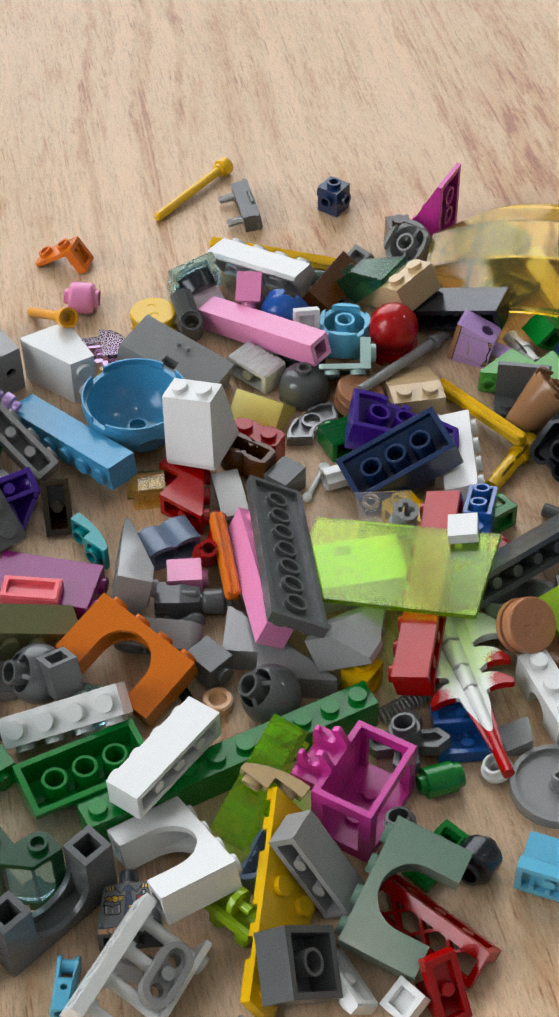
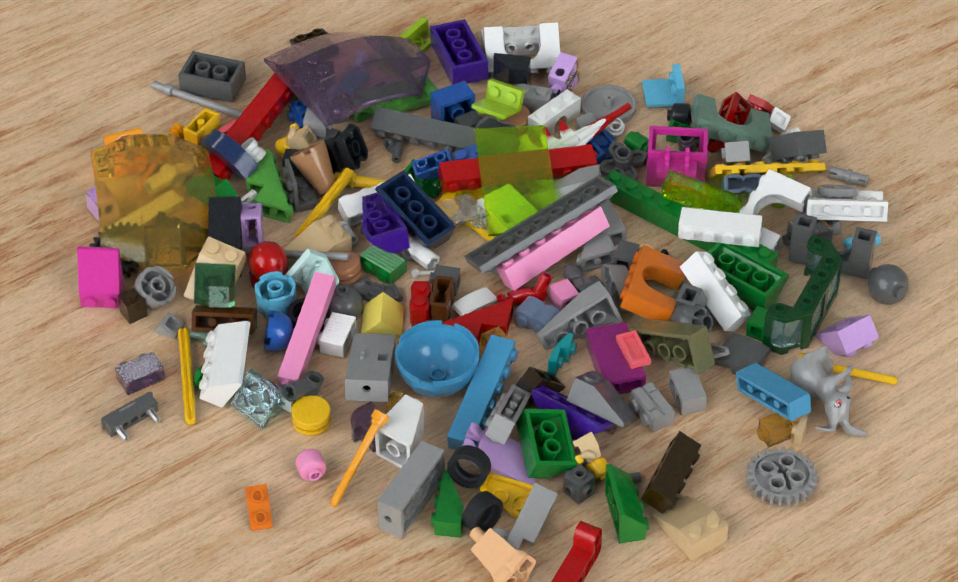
camera: 115 degrees left, 0 degrees up
(197, 423) = (453, 300): white slope -> none
(221, 167) = (79, 452): yellow piece -> none
(225, 556) = (532, 278): orange axle -> none
(250, 289) = (265, 353): bright pink piece -> none
(262, 777) = (708, 175): tan slope -> none
(269, 691) = (635, 217): dark grey brick -> none
(299, 221) = (140, 372): none -> clear purple brick
(308, 316) = (287, 306): white plate -> none
(333, 196) = (96, 359): dark blue brick -> none
(410, 513) = (469, 190): light grey bush -> none
(463, 528) = (479, 145): white tile -> none
(526, 625) = (522, 117): nougat head -> none

